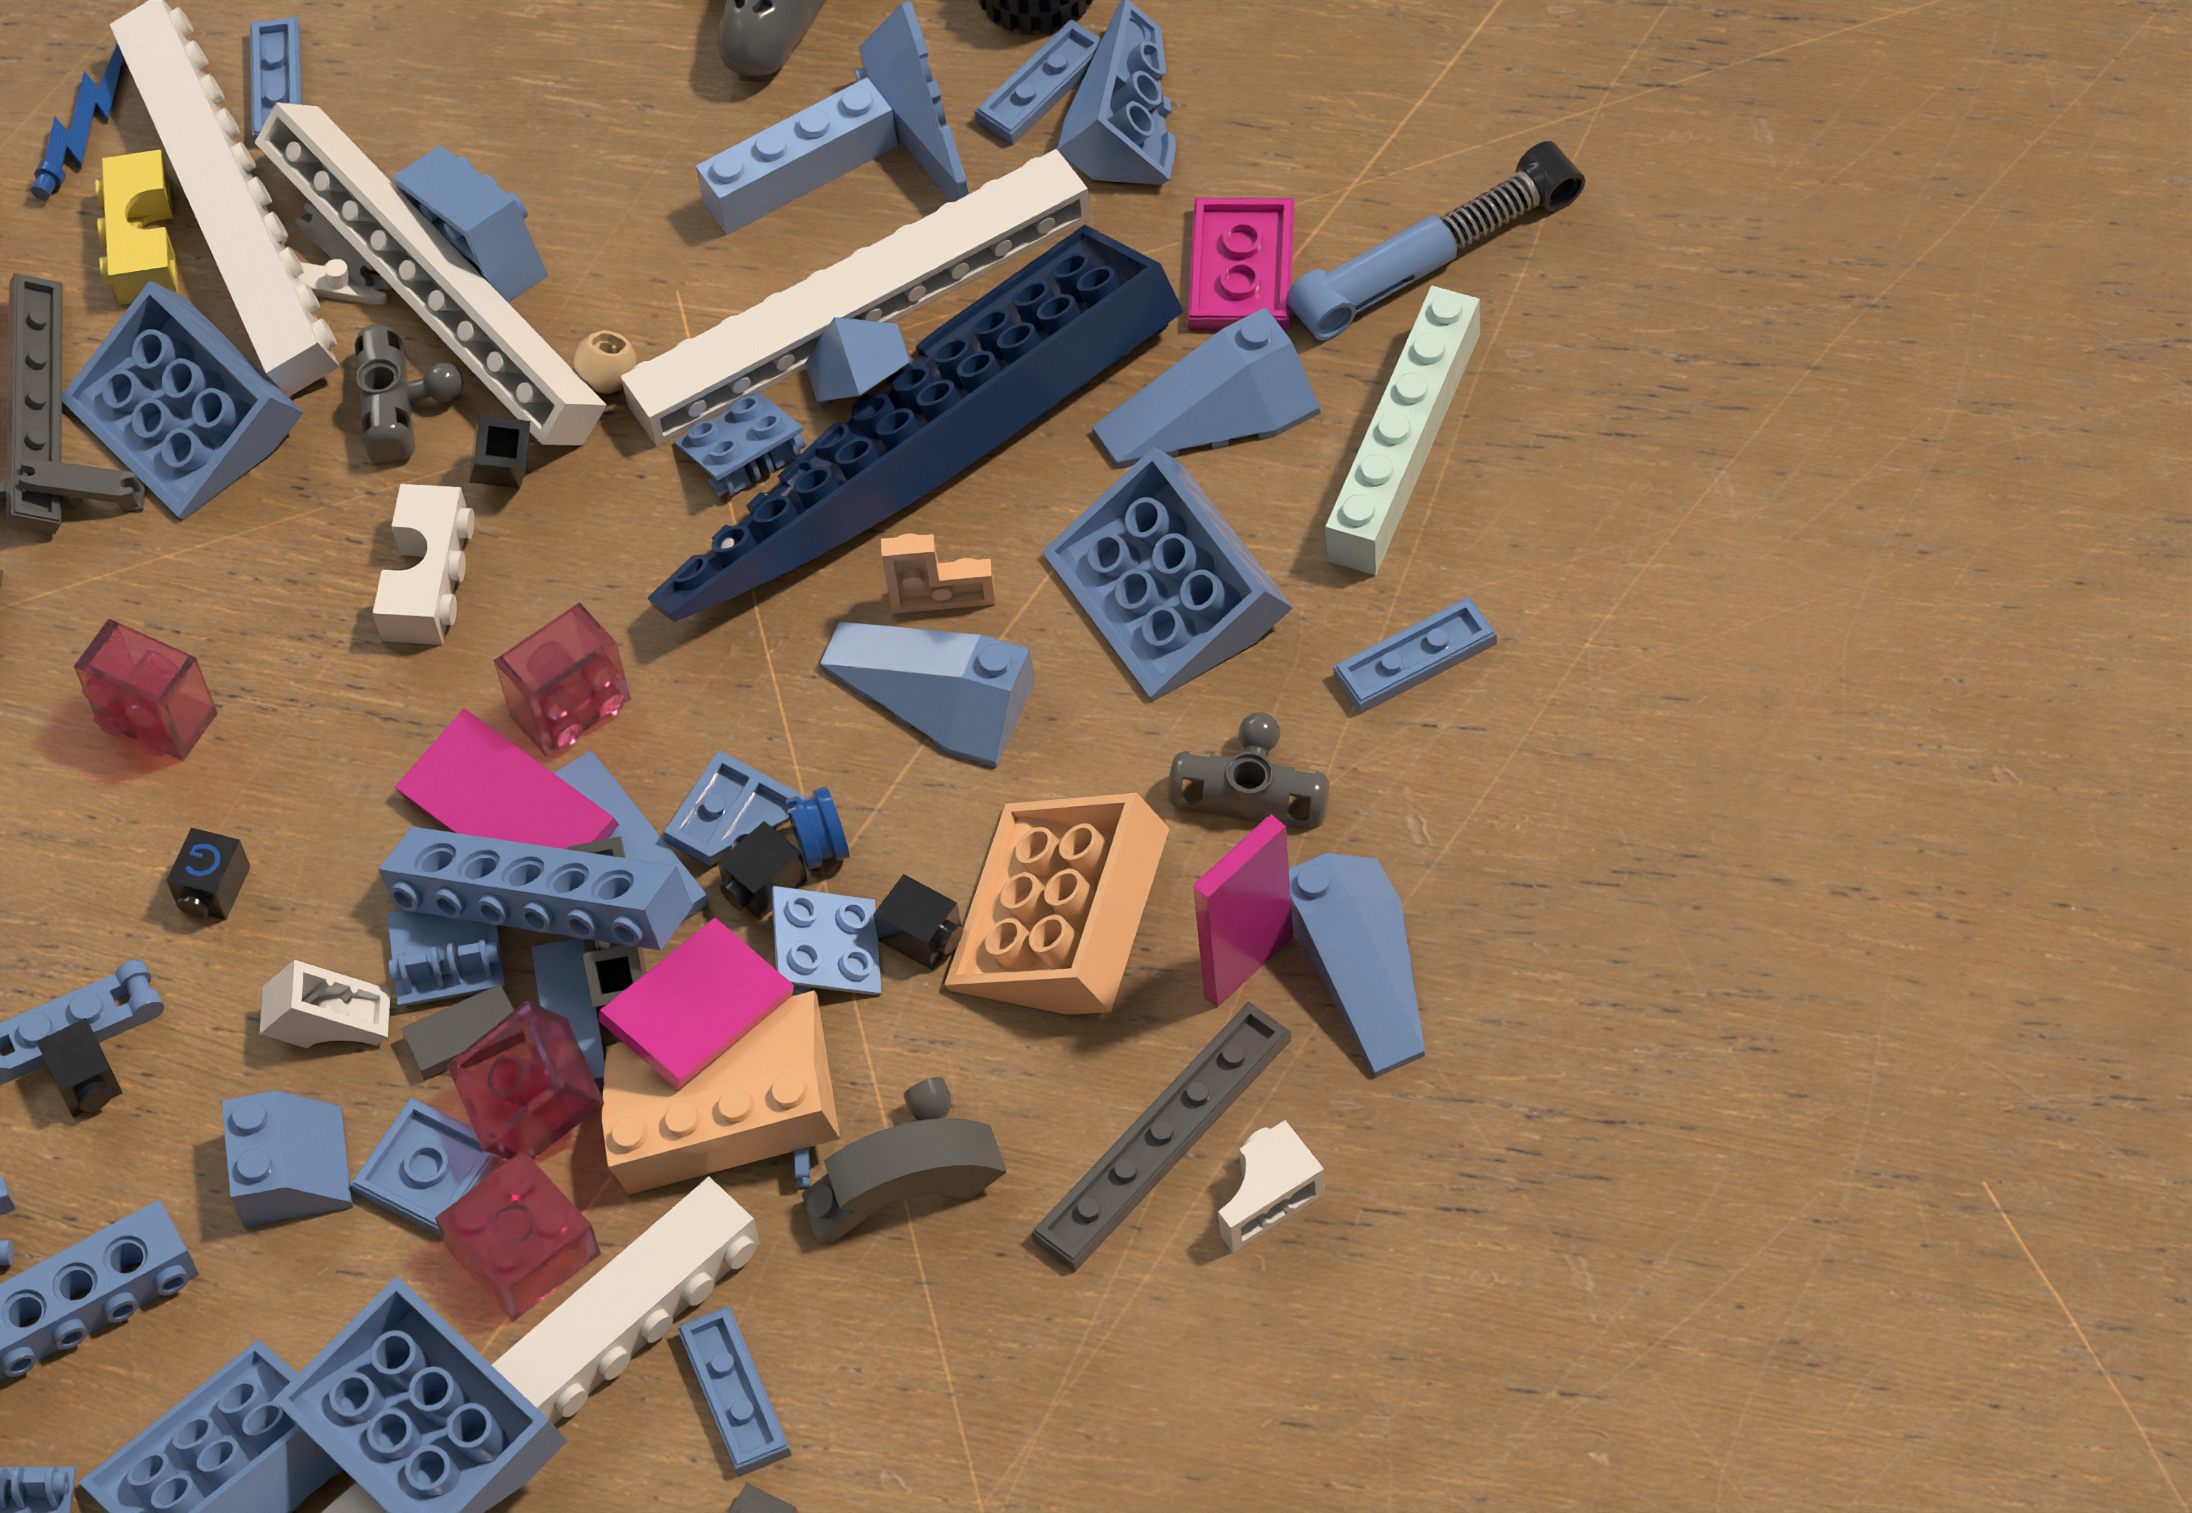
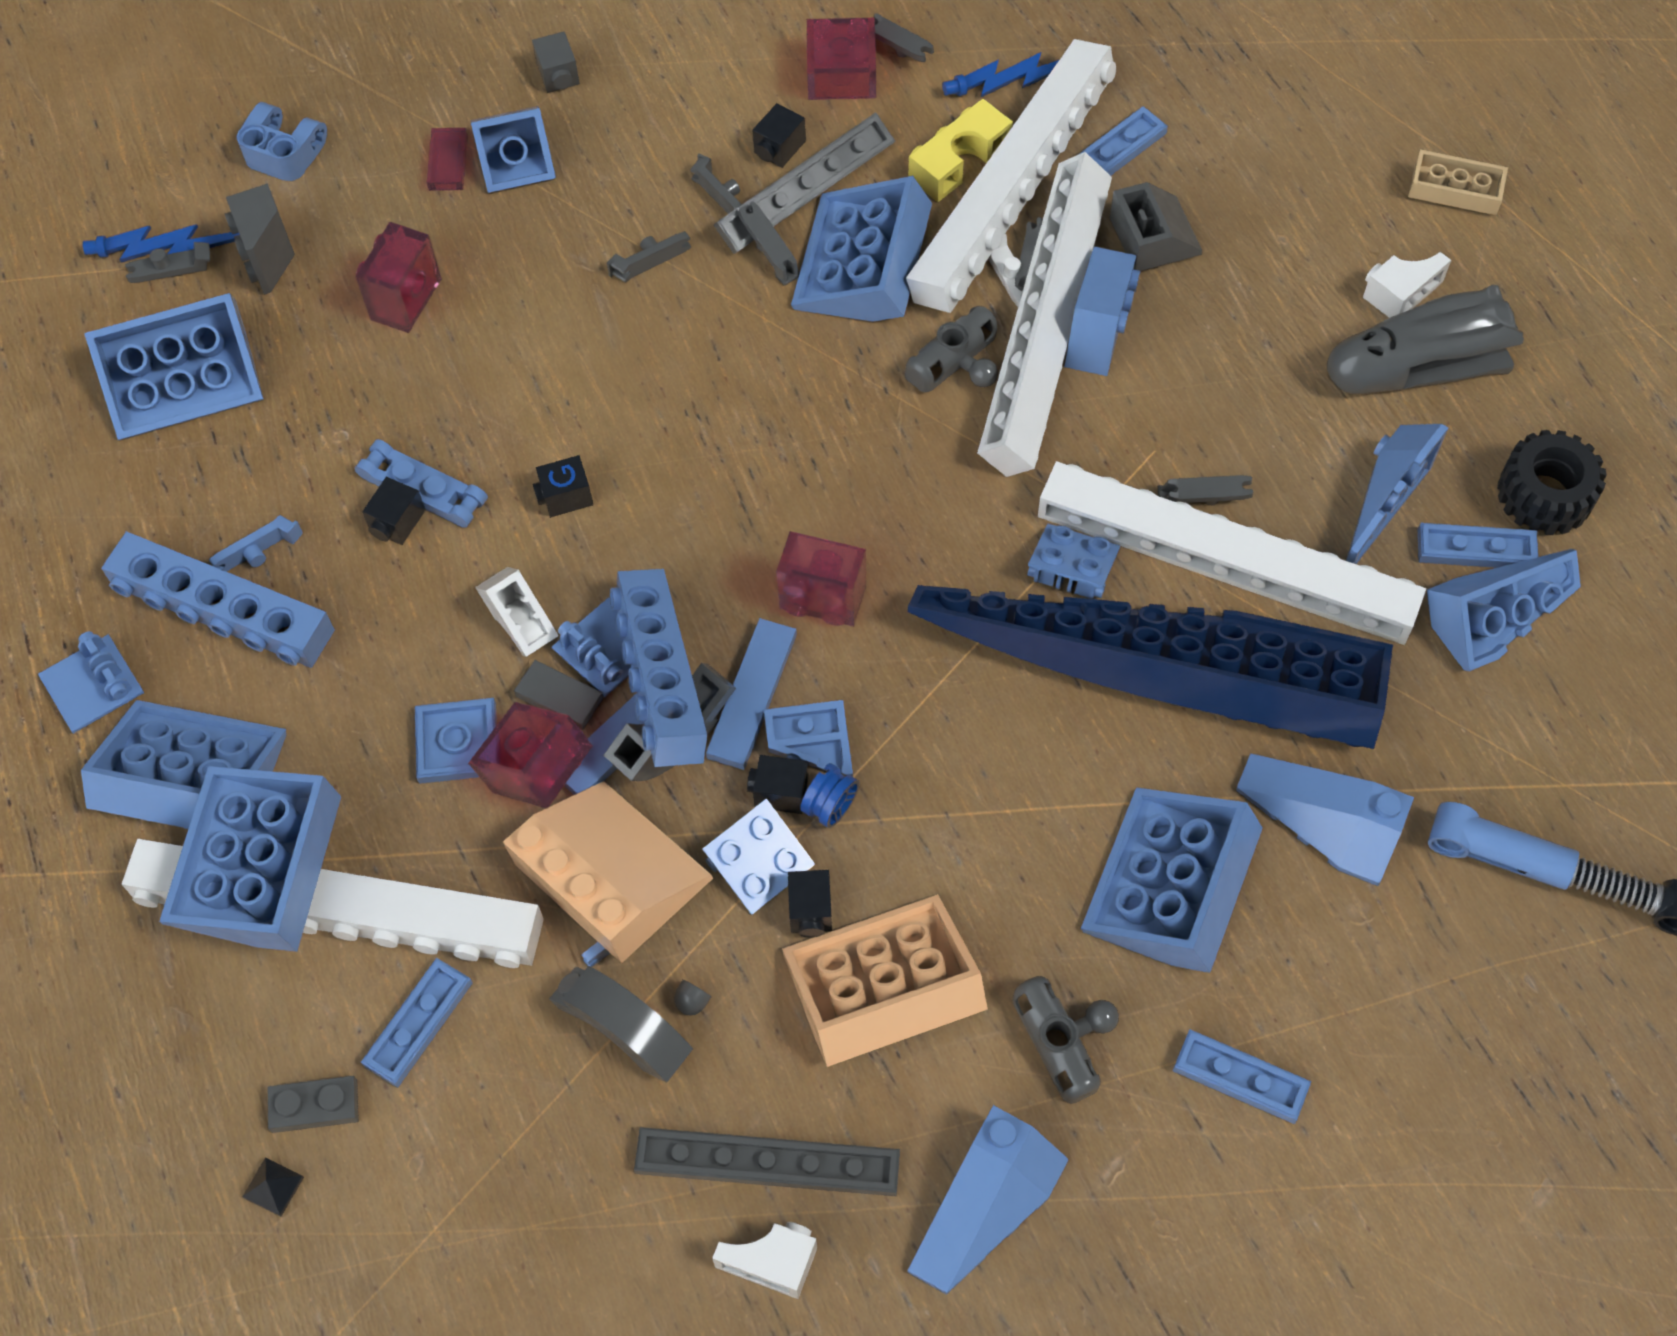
camera: 50 degrees right, 5 degrees up
(145, 690) = (649, 368): clear pink brick -> none
(285, 1157) = (406, 658): medium blue slope -> none
(412, 112) = (1152, 226): none -> dark grey slope
(420, 601) = (827, 466): white arch -> none
(493, 789) = (725, 606): dark pink tile -> none
(499, 451) = (954, 434): black brick -> none
(518, 1235) = (434, 823): clear pink brick -> none
(603, 359) = (1065, 445): tan piece -> none
(696, 1003) = (644, 812): dark pink tile -> none
(770, 267) = (1206, 489): none -> dark grey piece
(796, 155) = (1297, 447): light blue brick -> none
(855, 358) = (1181, 583): medium blue slope -> none
(922, 584) = (1048, 727): light nougat plate -> none
(944, 683) = (990, 796): medium blue wedge -> none
(1240, 260) = (1447, 758): dark pink tile -> none
(1243, 910) = (933, 1104): dark pink tile -> none
(1403, 430) = (1402, 949): light aqua brick -> none

